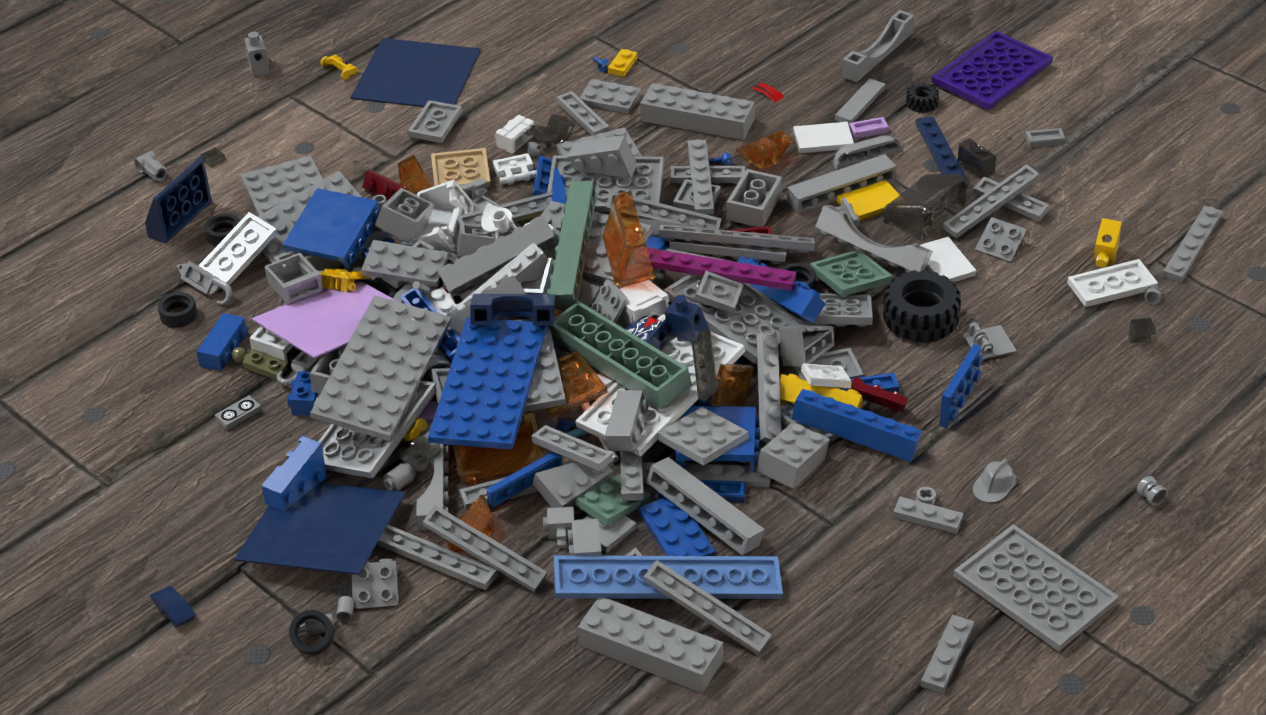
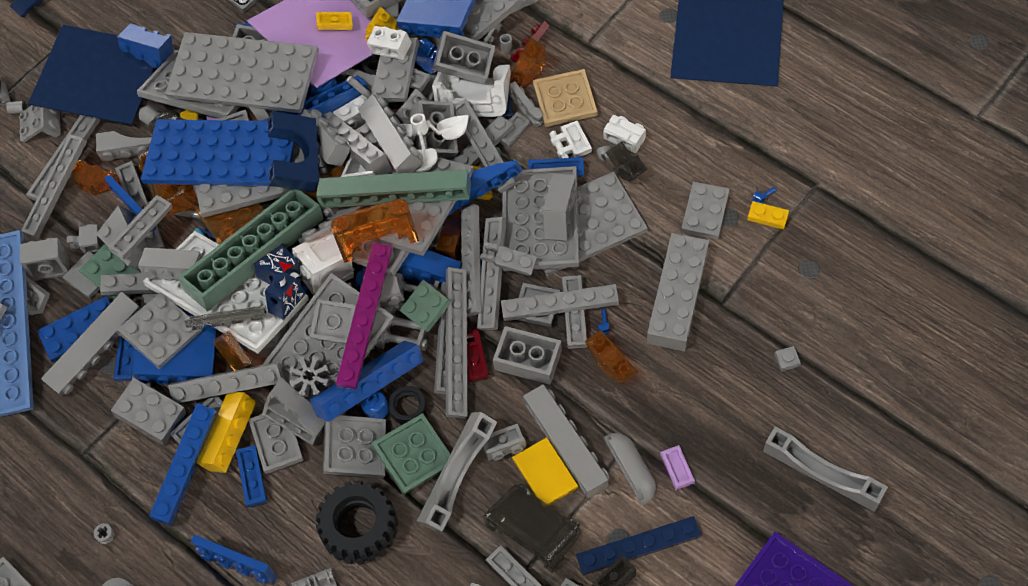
camera: 90 degrees right, 20 degrees up
(327, 303) = (334, 21): none -> yellow plate
(379, 252) = (389, 42): none -> white brick
(435, 121) = (641, 65): light grey plate -> none
(582, 113) = (666, 188): light grey plate -> none
(656, 192) = (509, 259): none -> light grey hinge
(699, 244) = (425, 306): none -> sand green plate
(769, 63) = (787, 358): none -> light grey plate
(769, 91) = (736, 361): red sticker -> none
(773, 316) = (305, 383): none -> light grey gear
(822, 137) = (653, 421): white tile -> none
(826, 375) = (243, 432): white tile -> none
(860, 101) = (725, 456): light grey tile -> none
(879, 396) = (227, 483): dark red plate -> none
(922, 97) = (745, 514): black tyre -> none
(928, 515) = (82, 536): light grey plate -> none
(948, 260) = (446, 550): white tile -> none

